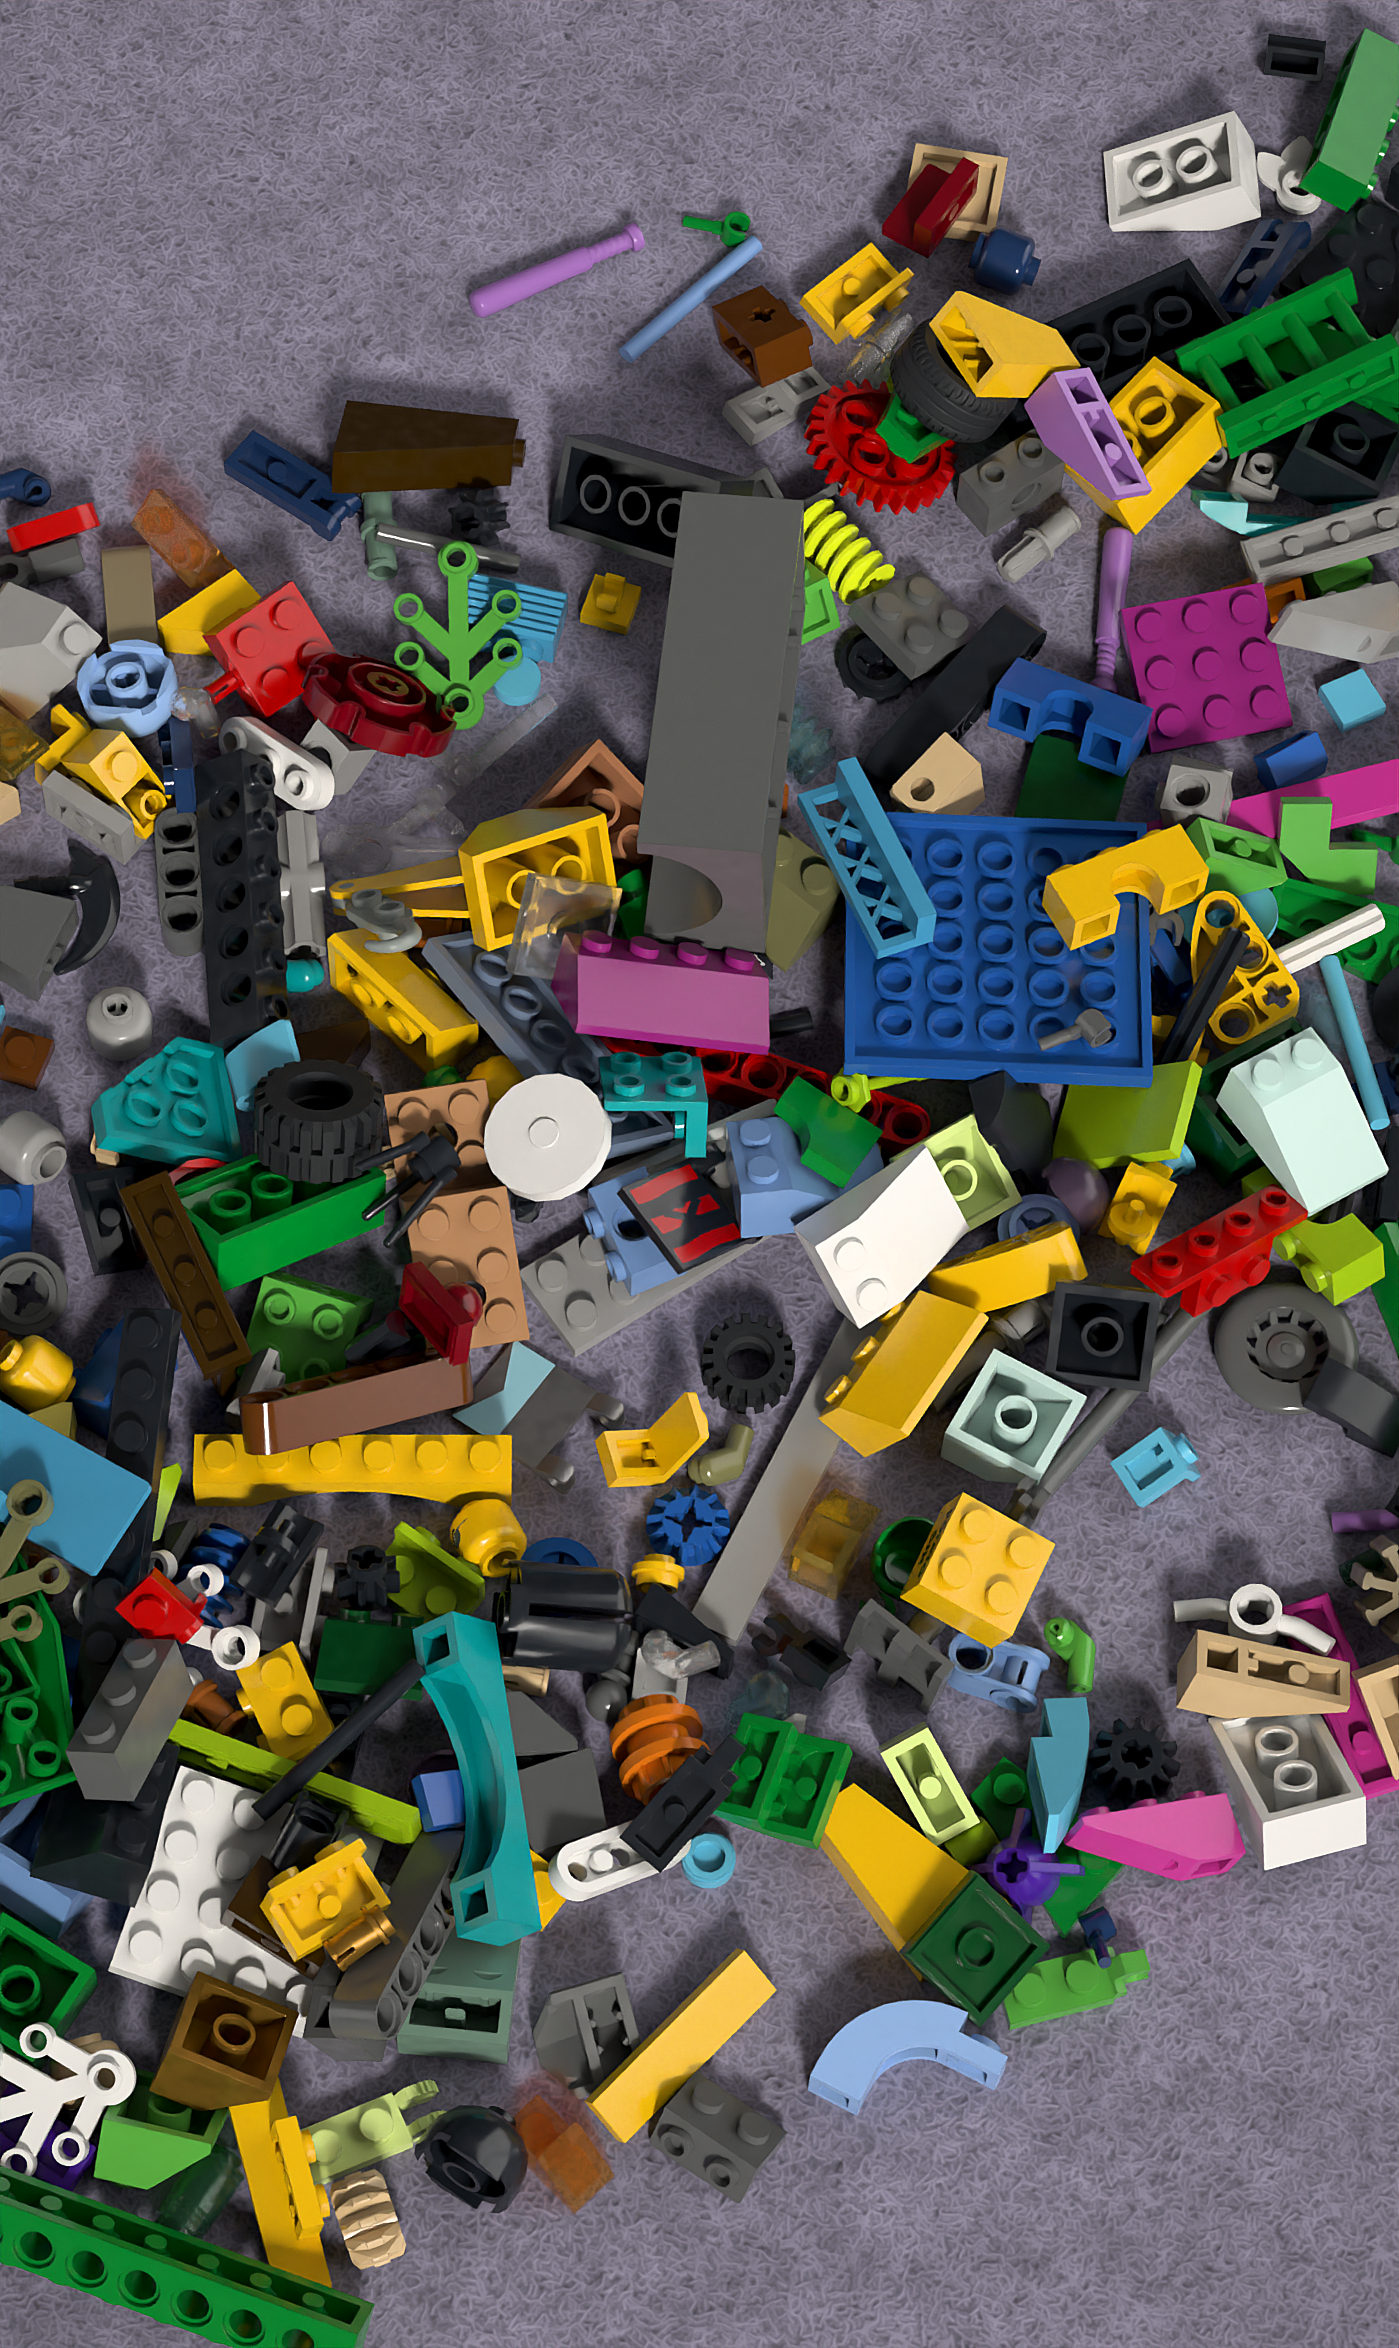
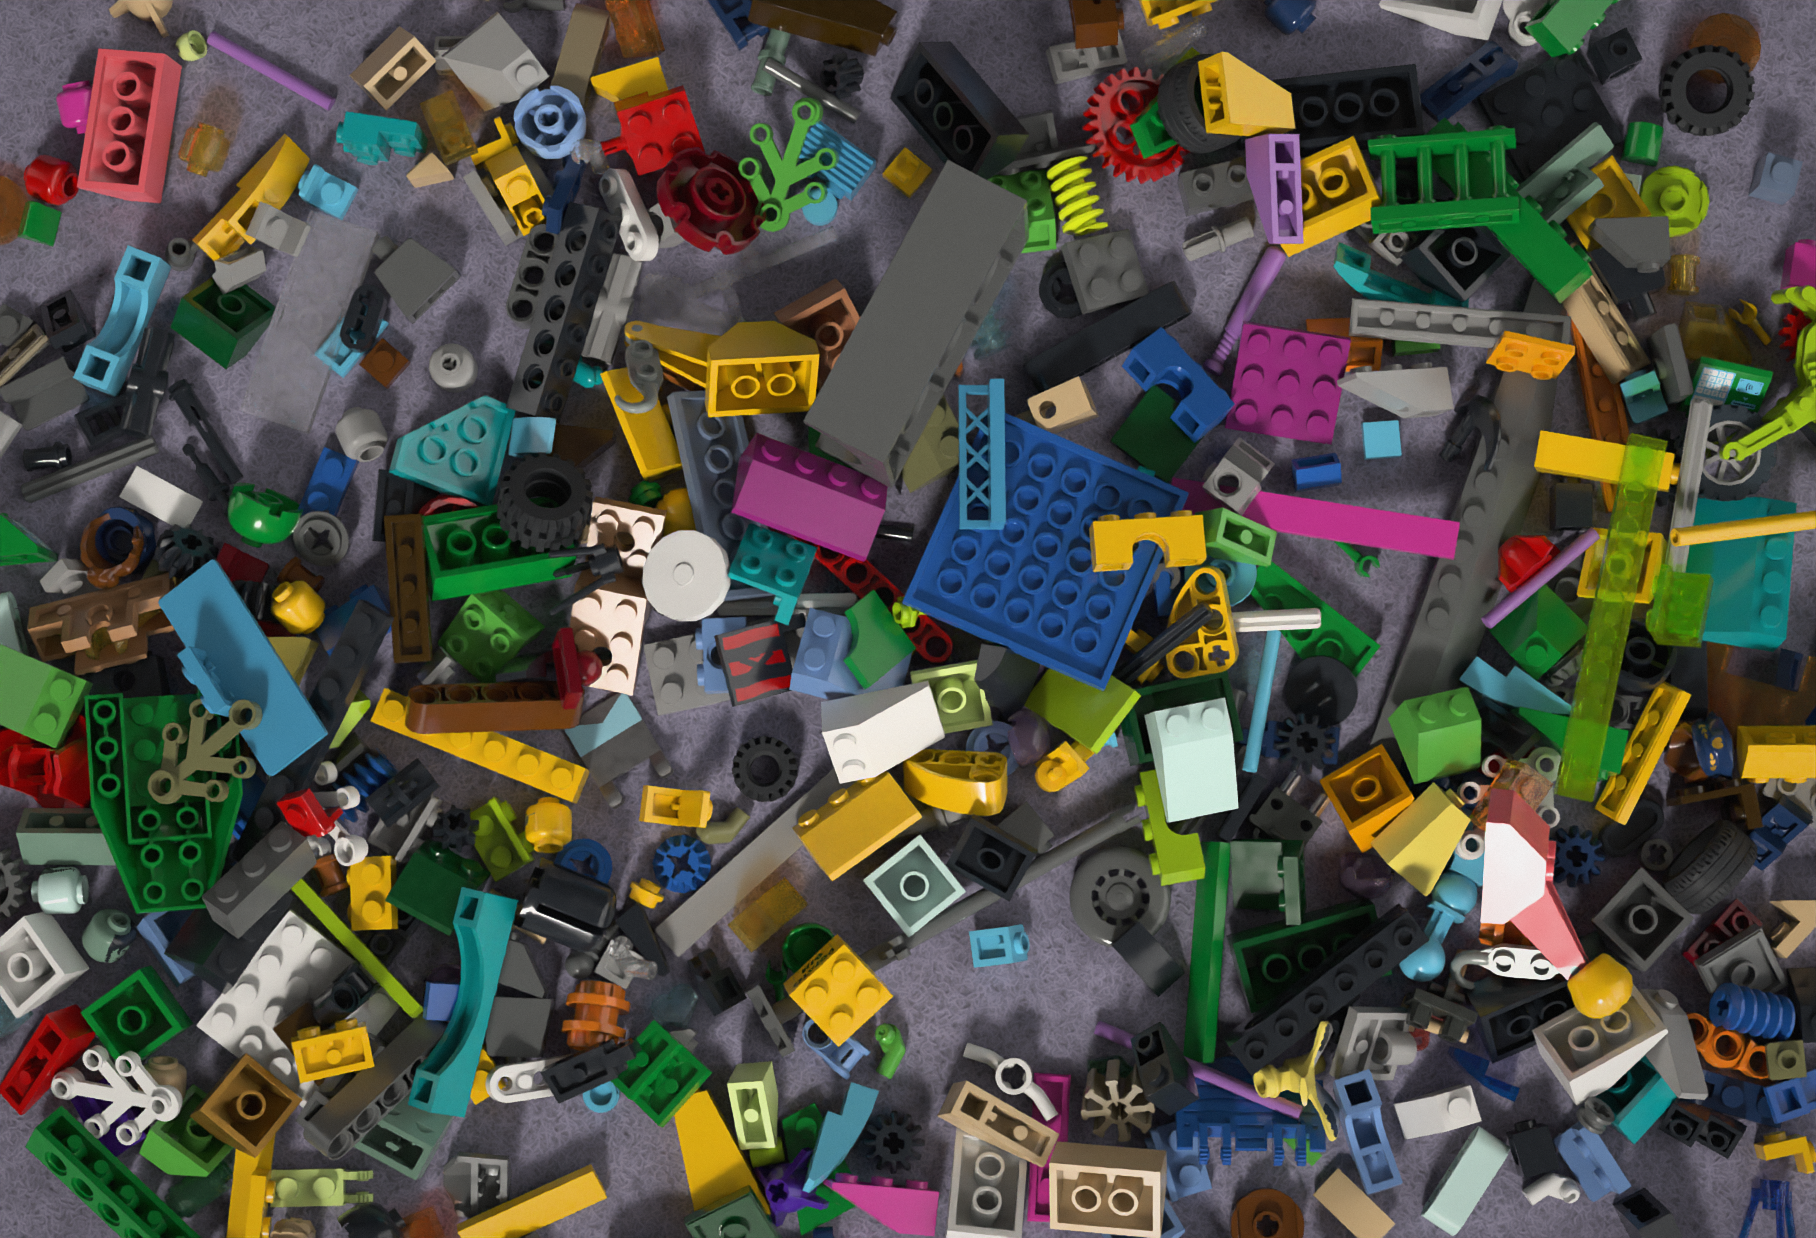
camera: 30 degrees right, 20 degrees up
(100, 903) = (480, 265): black piece -> none
(338, 1739) = (387, 941): black bar -> none
(359, 1937) = (343, 1085): pearl gold pin -> none
(548, 911) = (765, 411): clear tile -> none
(1089, 1024) = (1077, 640): dark grey hand -> none
(1222, 1252) = (1096, 828): red bracket -> none
(1305, 838) = (1307, 564): bright green tile -> none

